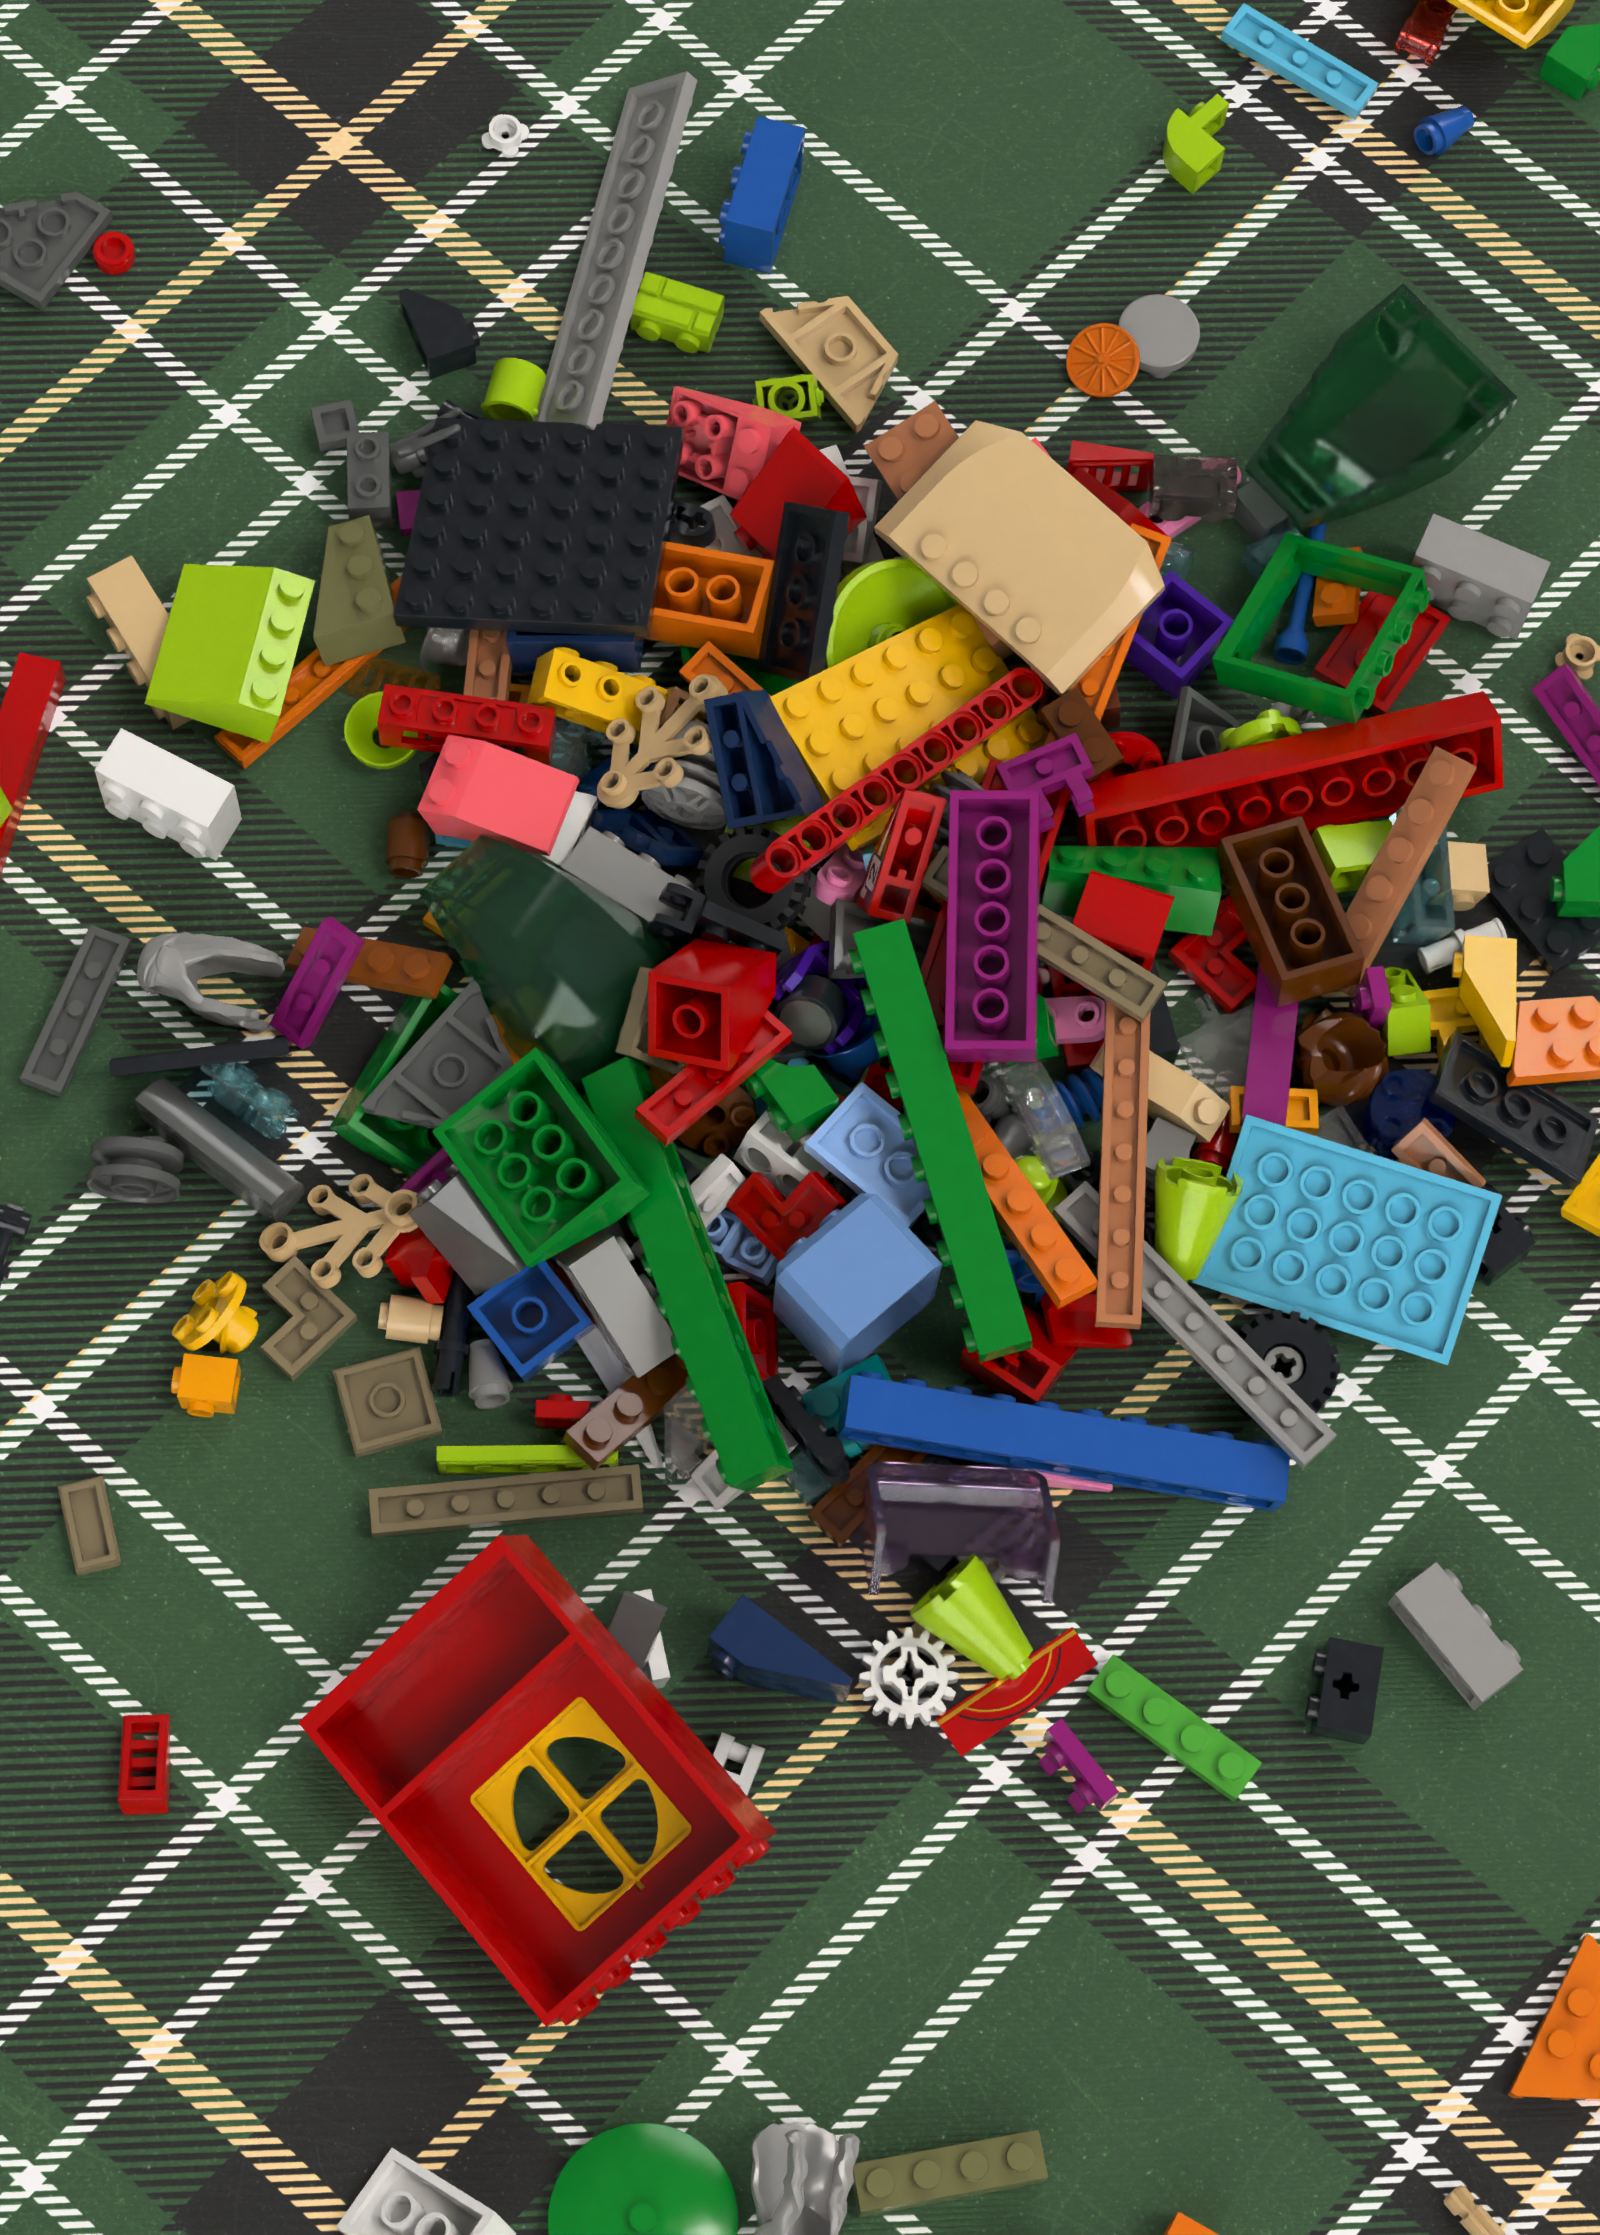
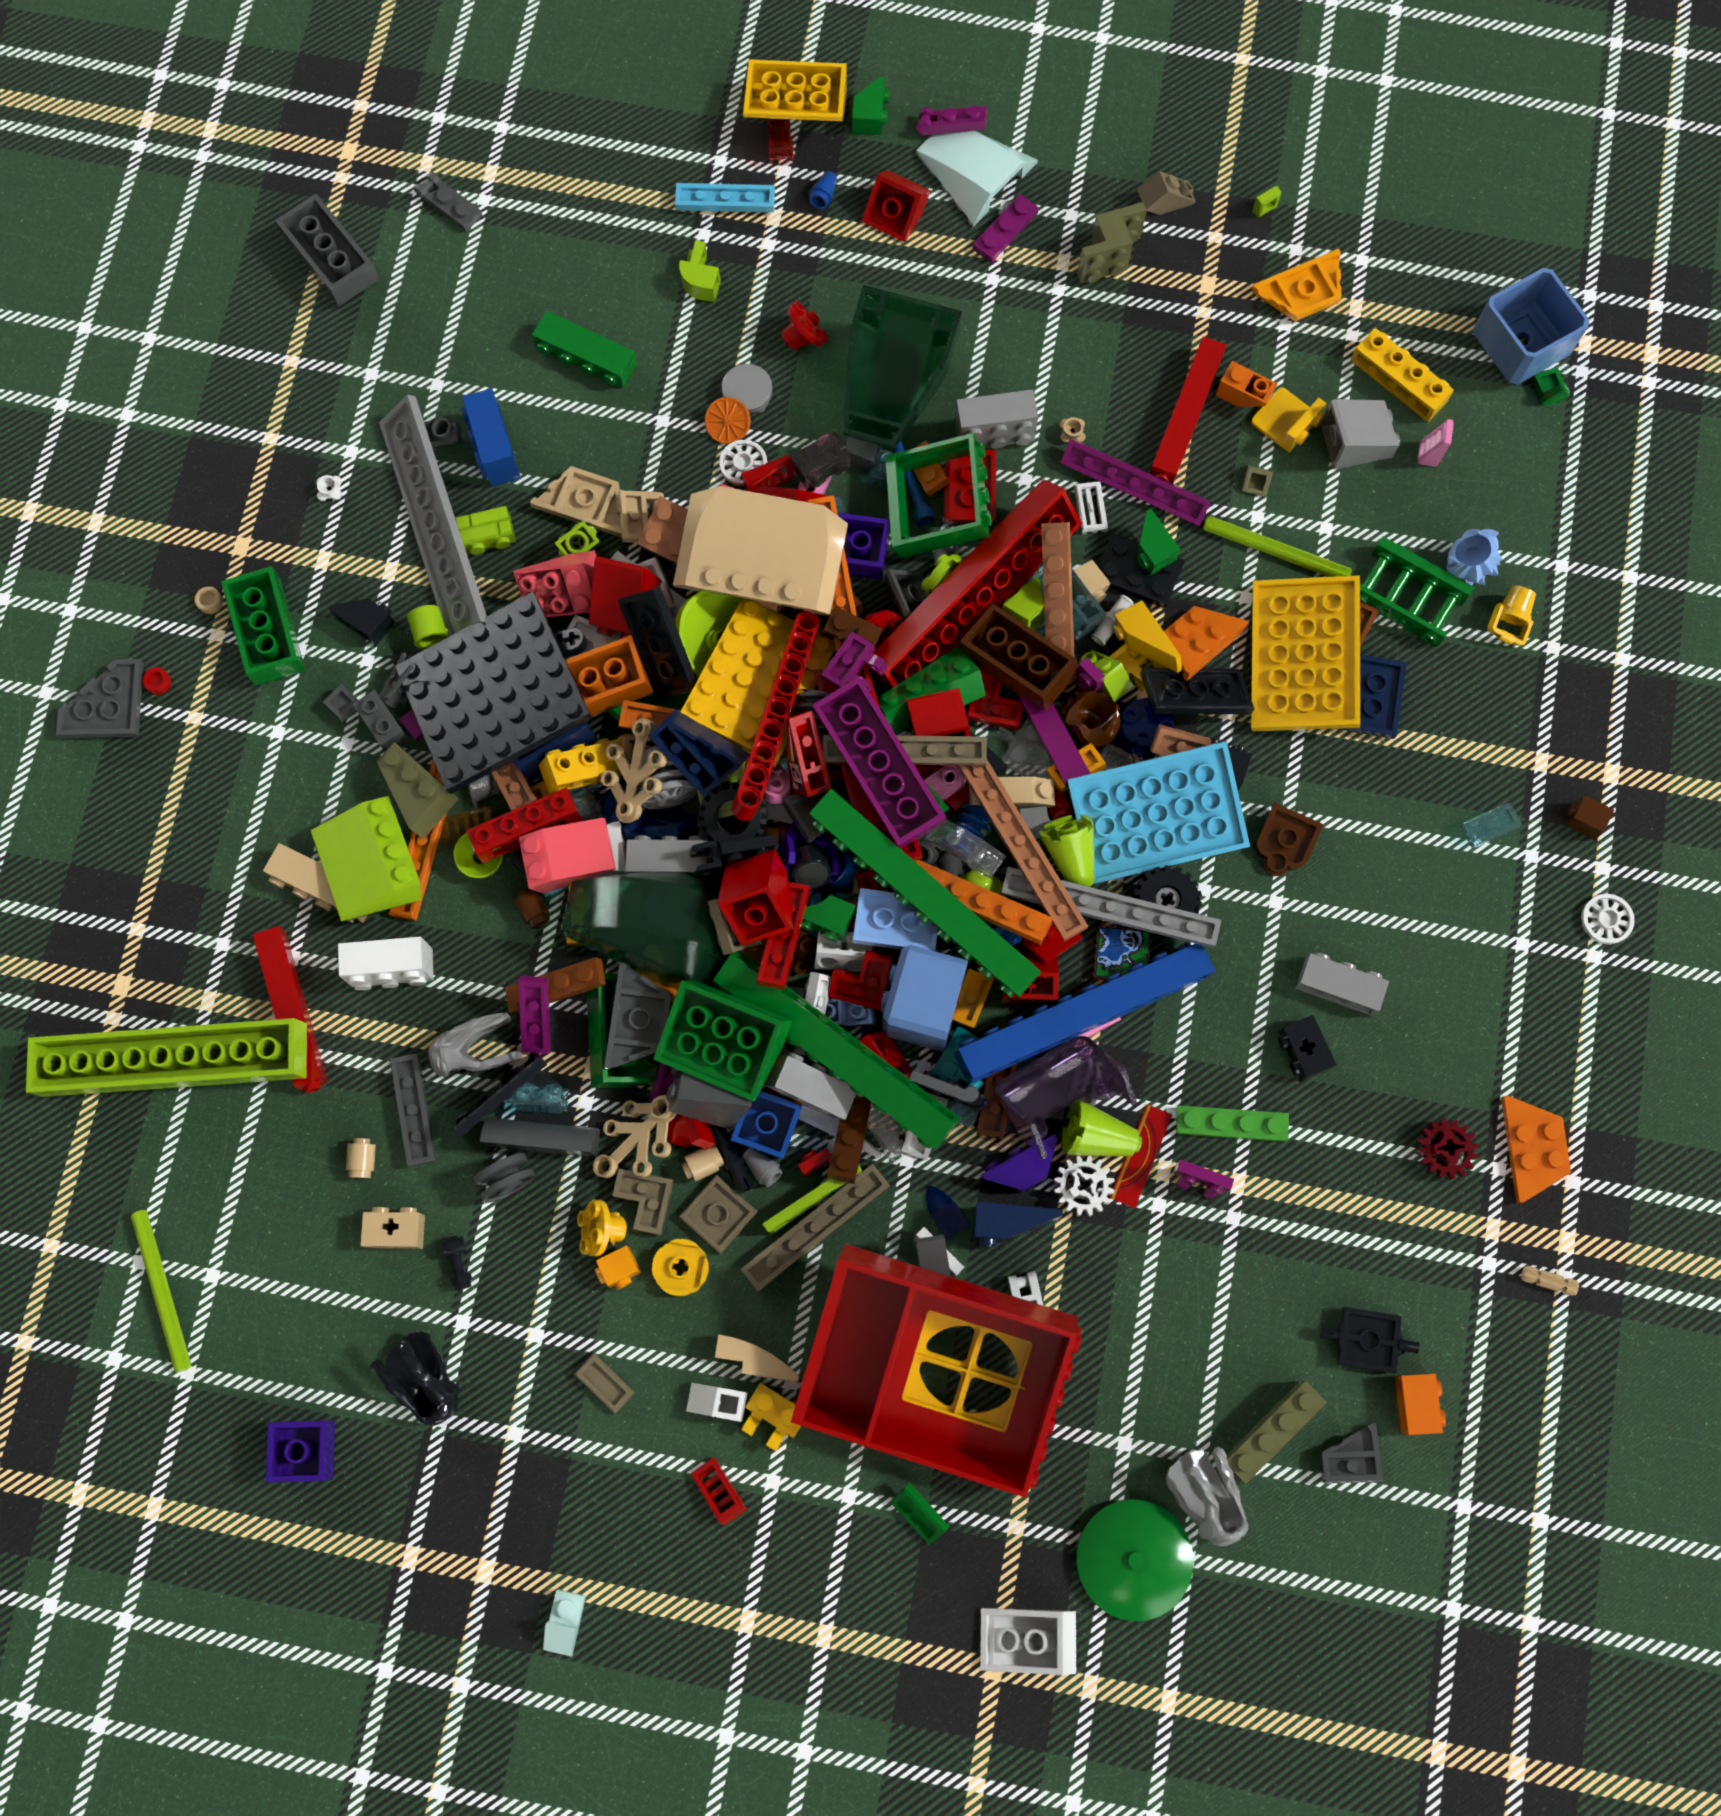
camera: 25 degrees left, 5 degrees up
(222, 1644) = (717, 1402): none -> white slope
(250, 188) = (208, 600): none -> tan tile
(288, 1700) = (773, 1409): none -> yellow plate
(290, 1413) = (672, 1254): none -> yellow plate
(298, 263) = (263, 626): none -> green brick
(306, 1618) = (754, 1359): none -> tan slope
(391, 1966) = (919, 1514): none -> green plate
(694, 1595) = (945, 1212): none -> clear blue plate
(703, 150) = (443, 432): none -> dark grey plate
(840, 1601) = (1022, 1168): none -> dark purple slope
(891, 404) = (634, 512): none -> tan plate
(920, 1332) = (971, 999): none -> light orange plate
(969, 153) = (584, 349): none -> green brick
(1087, 425) = (741, 461): none -> white wheel
(1168, 2140) = (1369, 1340): none -> black plate
(1173, 1393) = (1119, 950): none -> tile
(1290, 297) = (803, 328): none -> red plate
(1463, 1935) = (1447, 1138): none -> dark red gear
(1509, 1393) = (1286, 840): none -> reddish brown plate
(1521, 805) = (1093, 527): none -> white tile
(1531, 206) = (895, 205): none -> red slope

